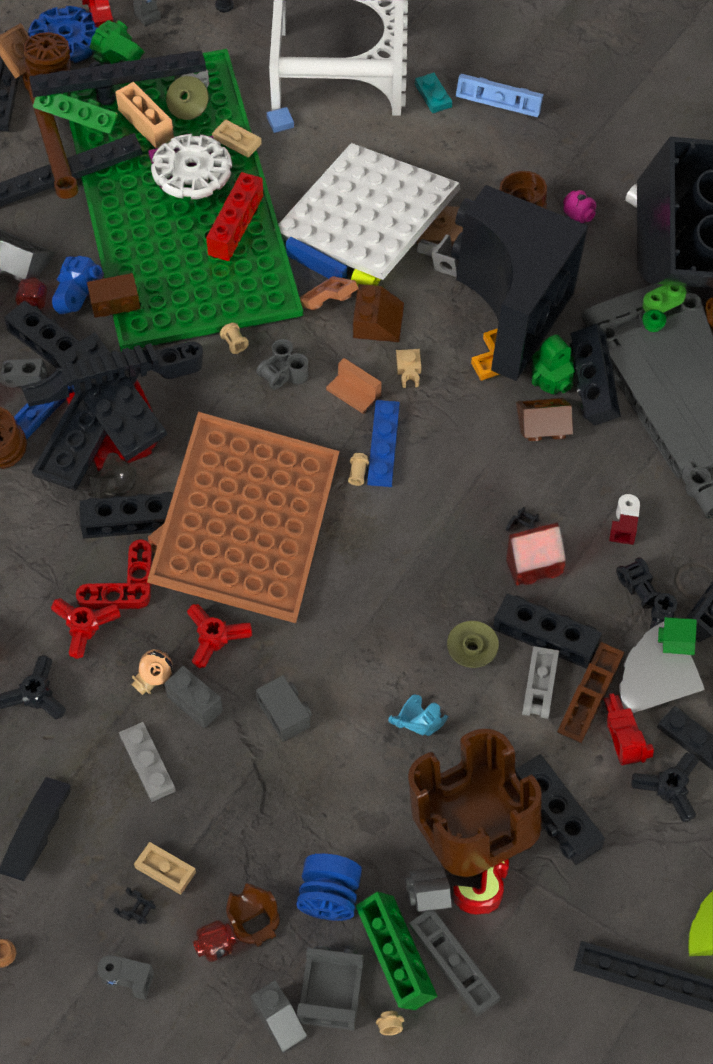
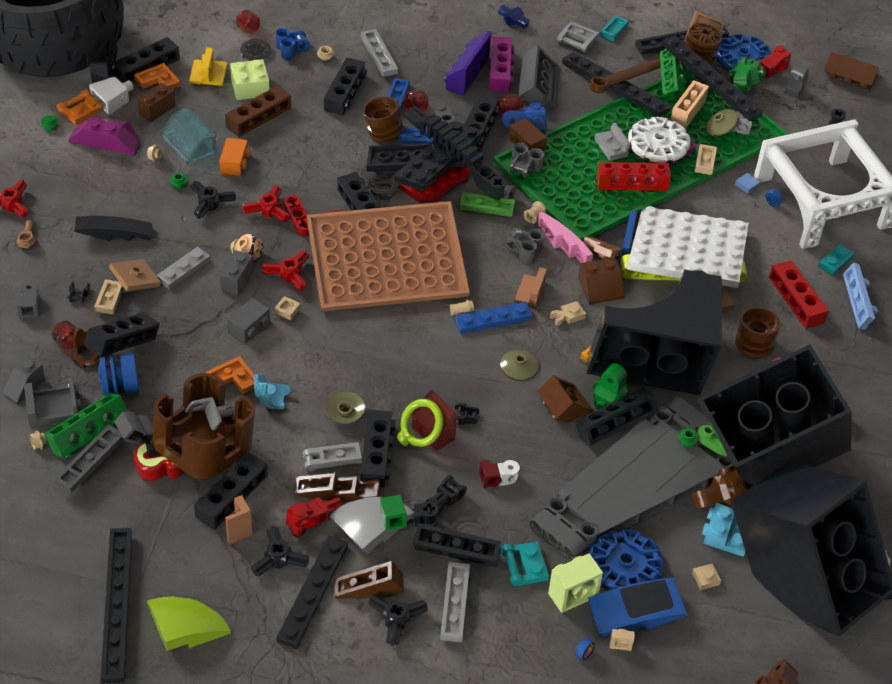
camera: 65 degrees right, 10 degrees down
(141, 824) = (135, 275): none -> medium nougat plate
(152, 312) = (526, 161): none -> dark grey piece
(163, 214) = (613, 143): none -> light grey bracket
(195, 384) = (487, 205): none -> bright green plate
(263, 863) = (121, 334): none -> black brick
(278, 658) = (287, 308): none -> tan plate
(293, 324) = (562, 237): none -> bright pink slope
(319, 105) = (774, 197): none -> blue tile
(364, 749) = (236, 372): none -> orange plate
(452, 787) = (212, 412): none -> light grey bracket
(463, 451) = (519, 365): none -> olive dish
(474, 145) = (798, 294): none -> red brick
(540, 593) = (407, 436): none -> lime piece
(618, 804) = (239, 524): none -> nougat panel

